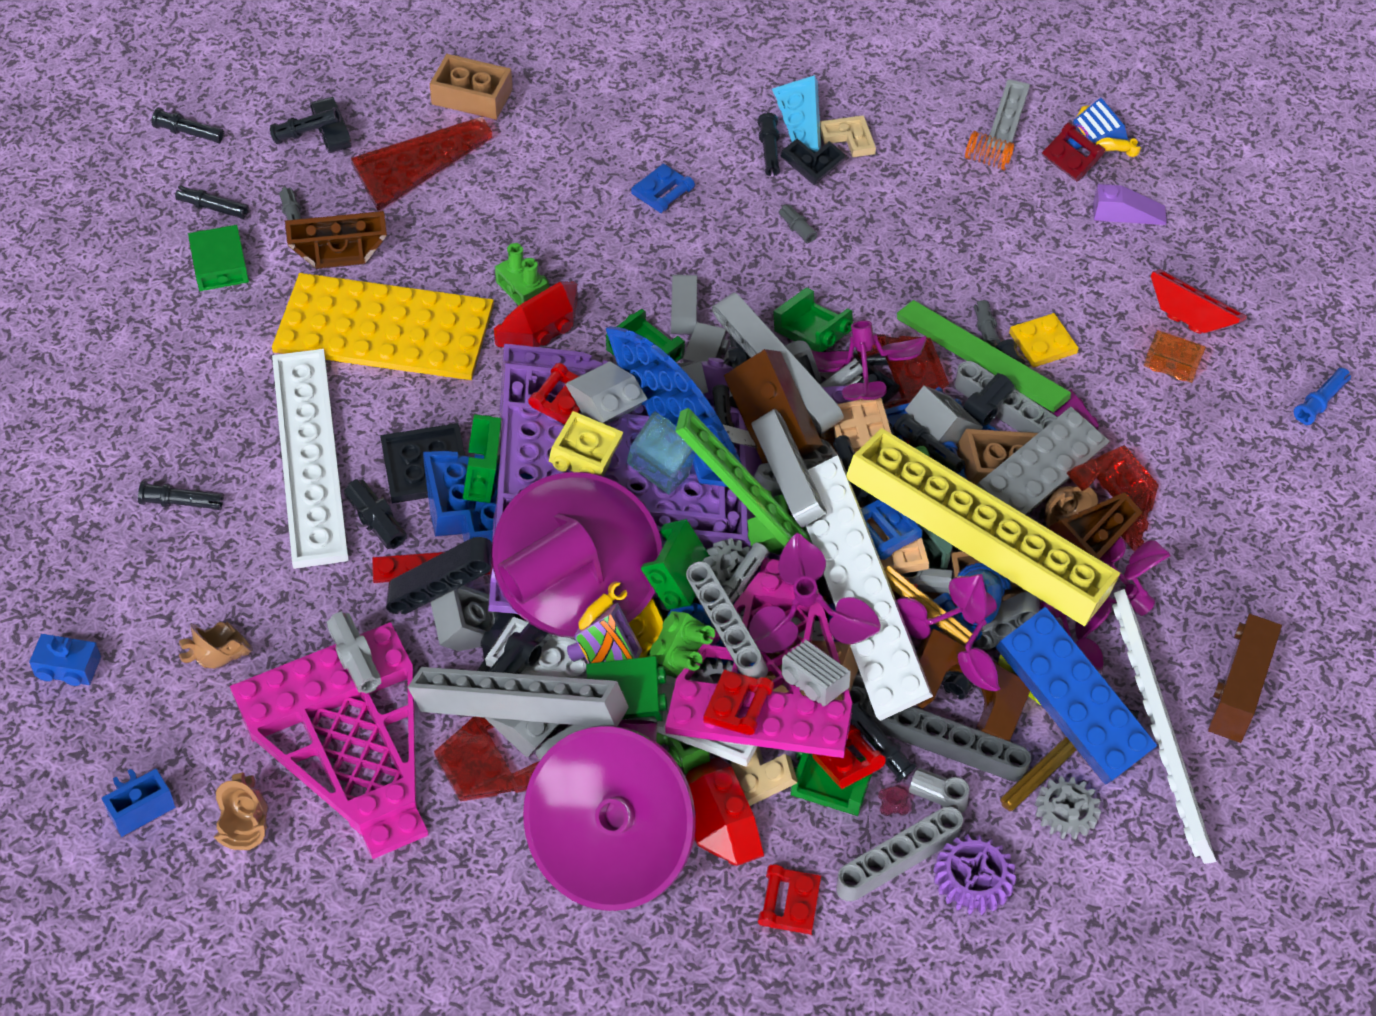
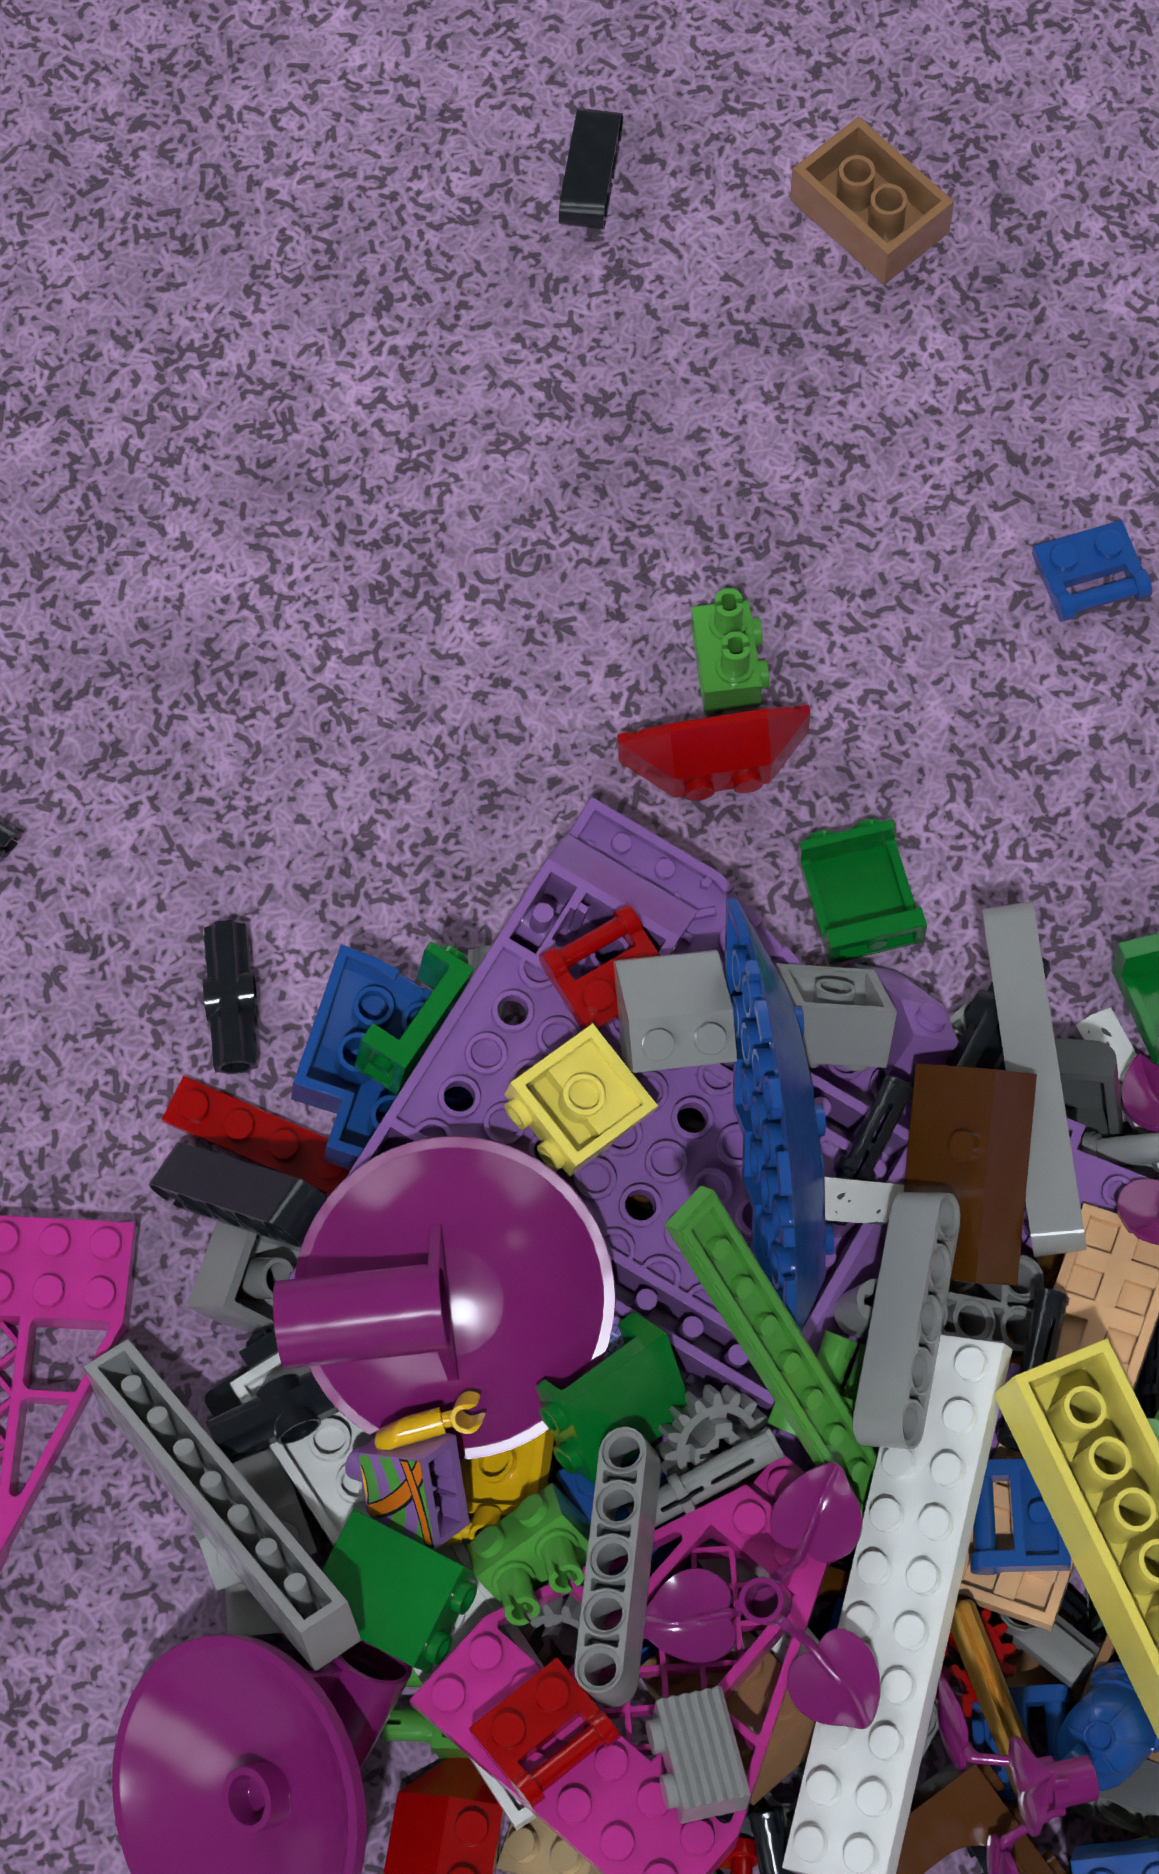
camera: 35 degrees right, 15 degrees up
(177, 123) = (343, 51): black pin -> none
(204, 200) = (299, 227): black pin -> none
(218, 257) = (256, 359): green panel -> none
(290, 207) = (431, 314): dark grey axle -> none
(295, 127) = (580, 163): black pin -> none
(309, 459) = (189, 832): white plate -> none
(337, 239) = (463, 418): reddish brown wedge -> none
(353, 652) = (34, 1259): light grey piece -> none
(385, 325) = (455, 629): yellow plate -> none
(404, 165) = (672, 311): clear red wing -> none
(405, 458) = (367, 911): black plate -> none
(476, 765) = (126, 1559): clear red wing -> none
(661, 454) = (707, 1157): clear light blue slope -> none
(683, 304) = (979, 838): light grey beam -> none
(706, 343) = (951, 957): light grey brick -> none

